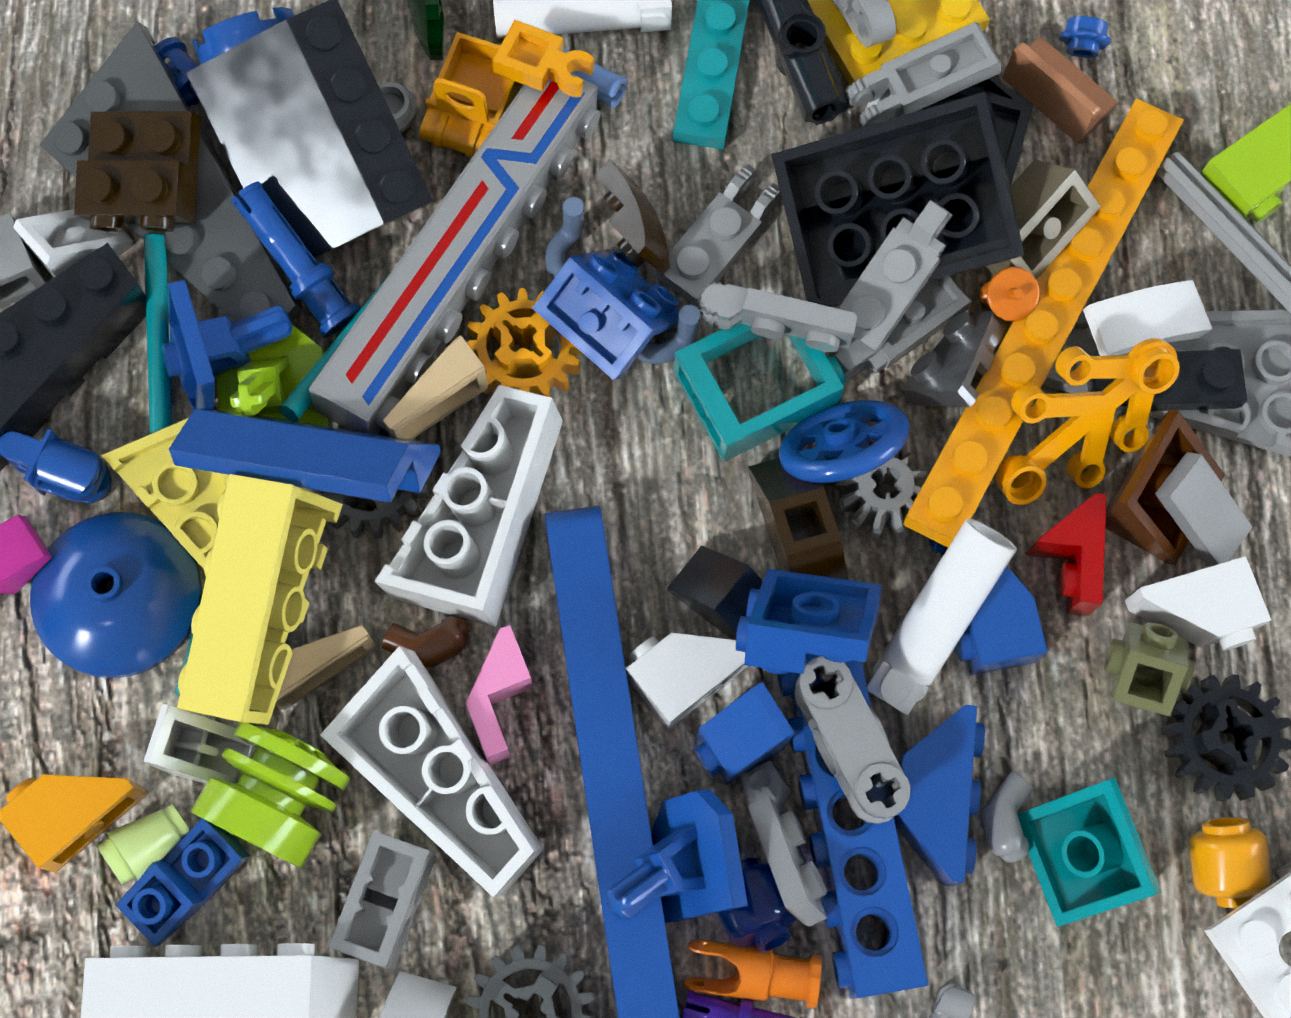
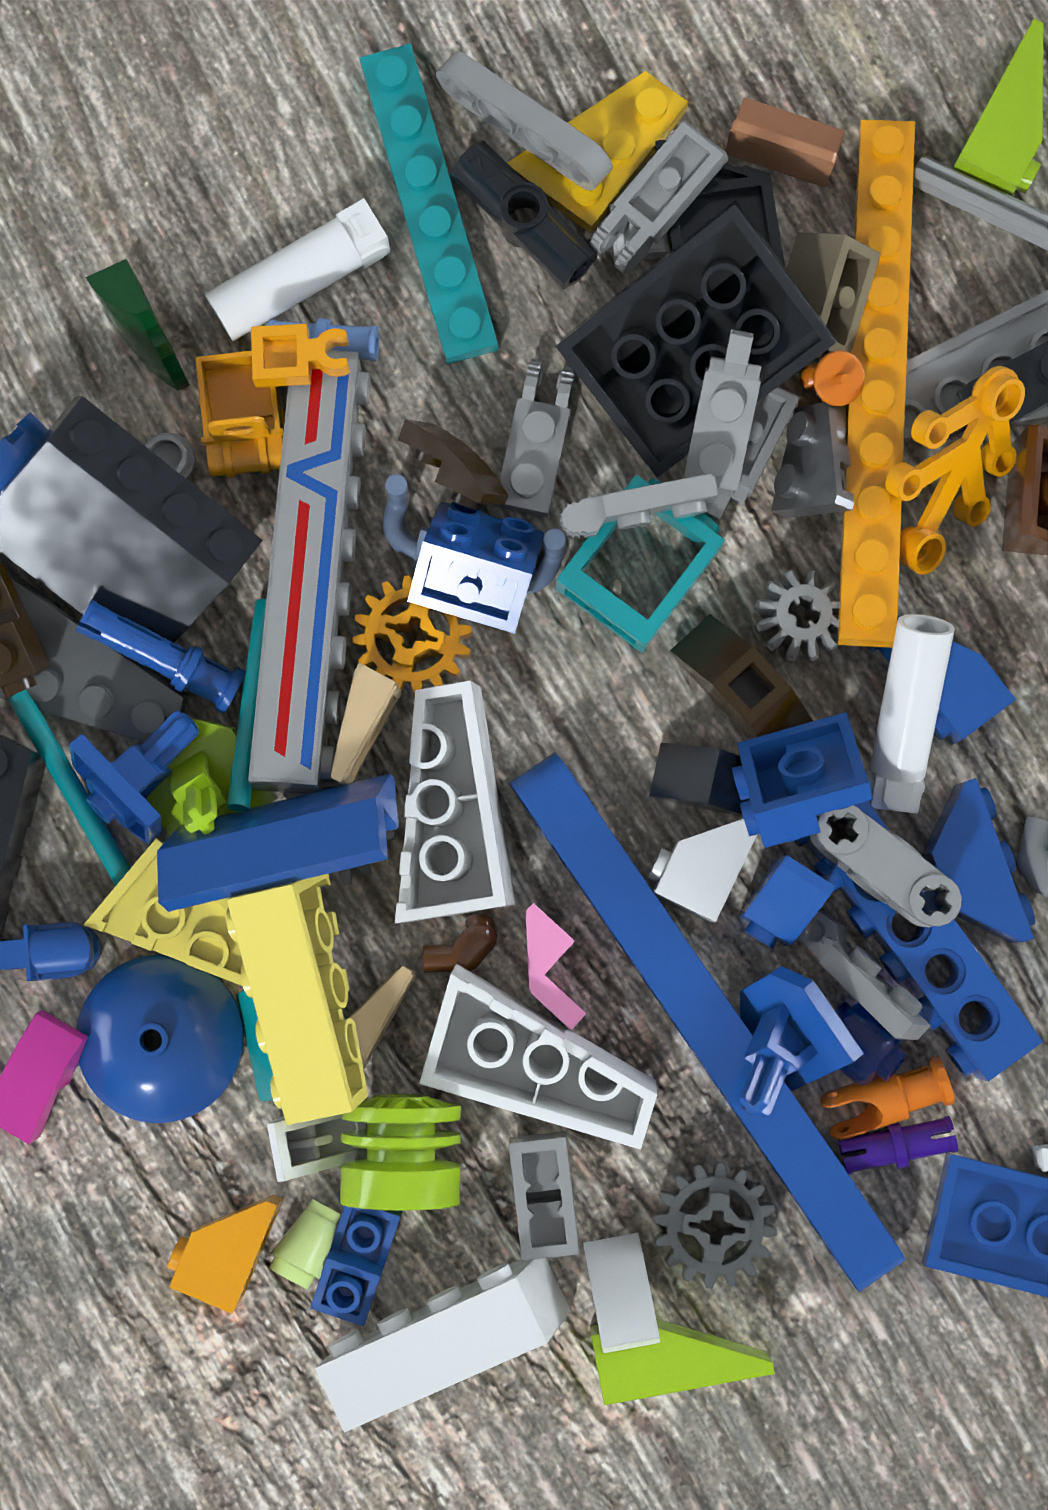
camera: 20 degrees left, 10 degrees up
(843, 439) = (748, 590): blue plate -> none
(1082, 543) = (999, 577): red slope -> none
(1085, 36) = (786, 77): blue plate -> none
(1160, 312) = (968, 342): white slope -> none

